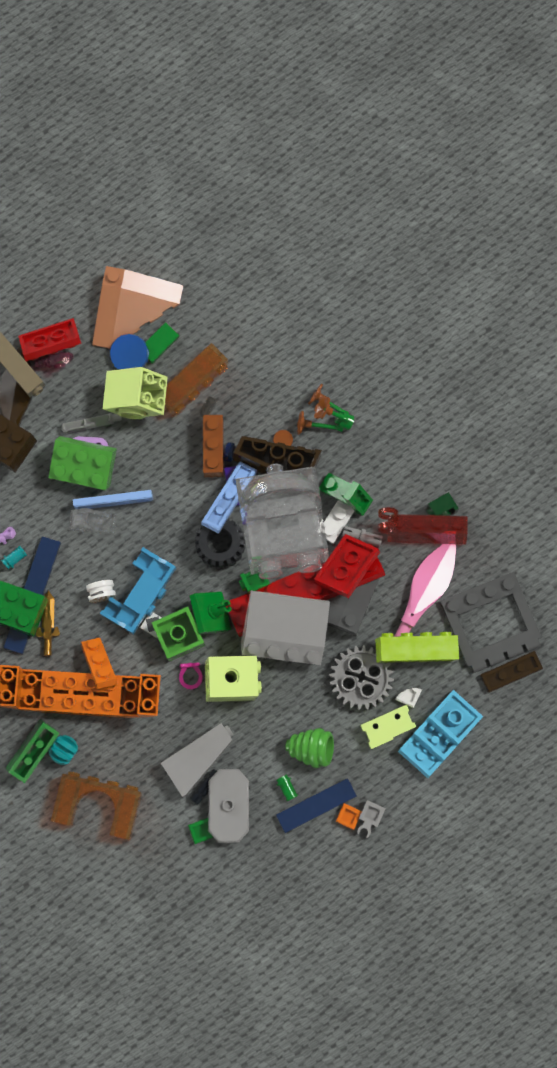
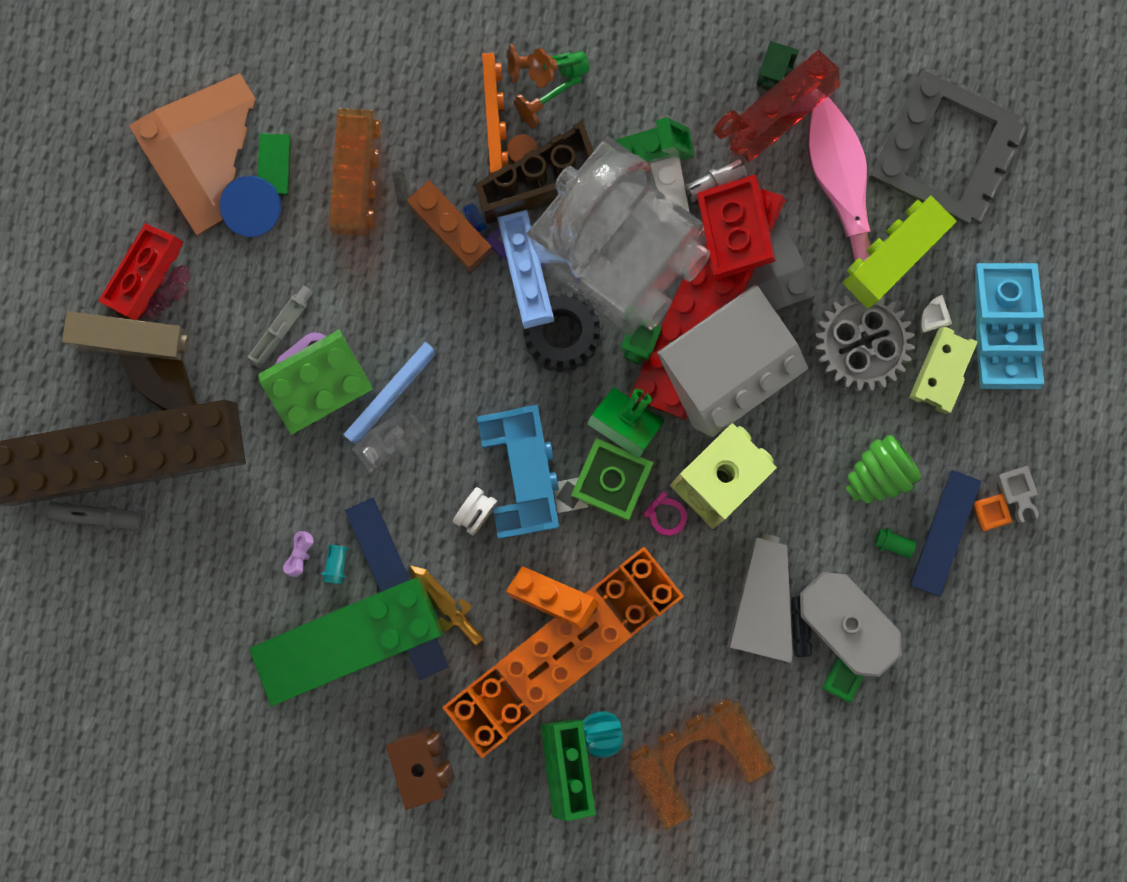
camera: 50 degrees left, 5 degrees up
(135, 393) = (303, 243): yellowish green brick -> none
(289, 405) = (494, 103): none -> orange plate
(511, 672) = (1021, 185): dark brown tile -> none

